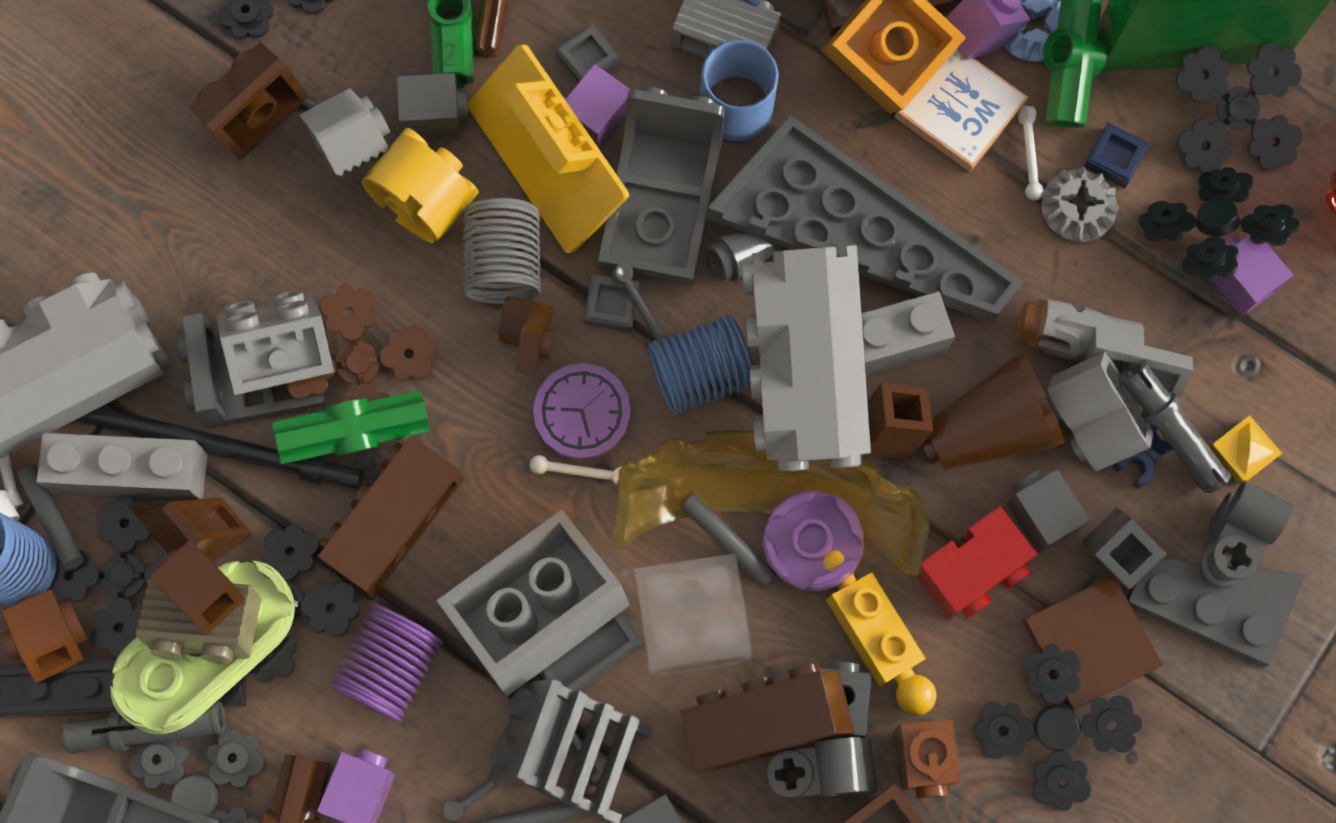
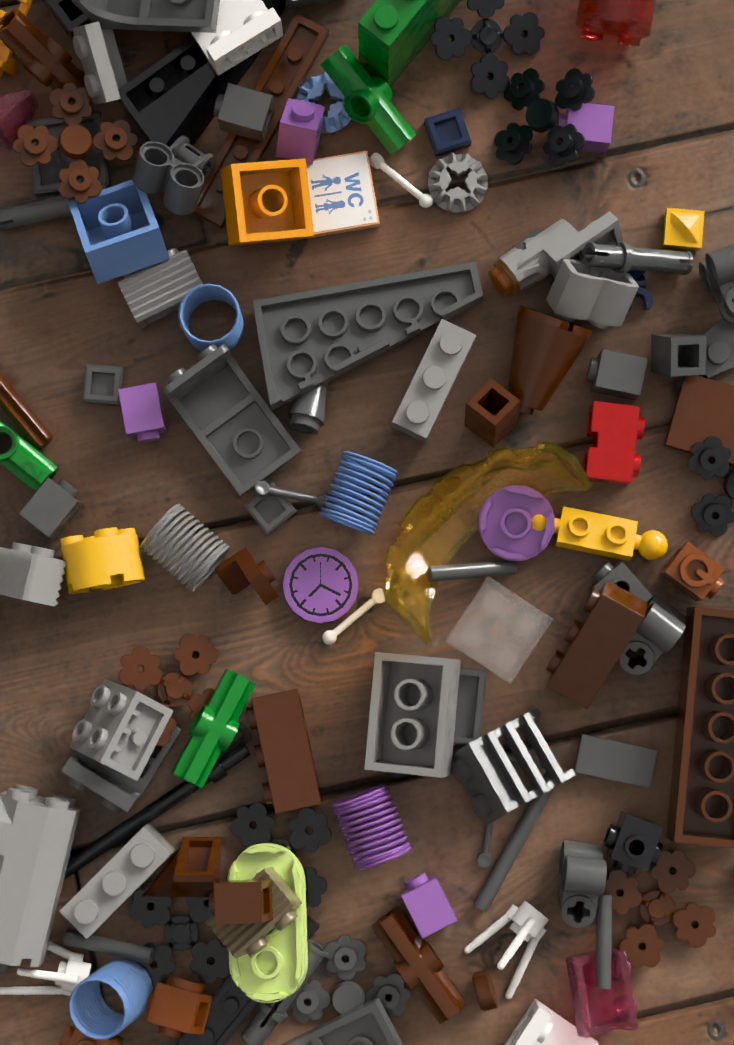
camera: 45 degrees left, 10 degrees up
(547, 149) = (144, 464): yellow bracket -> none
(808, 357) = (420, 434): light grey brick -> none

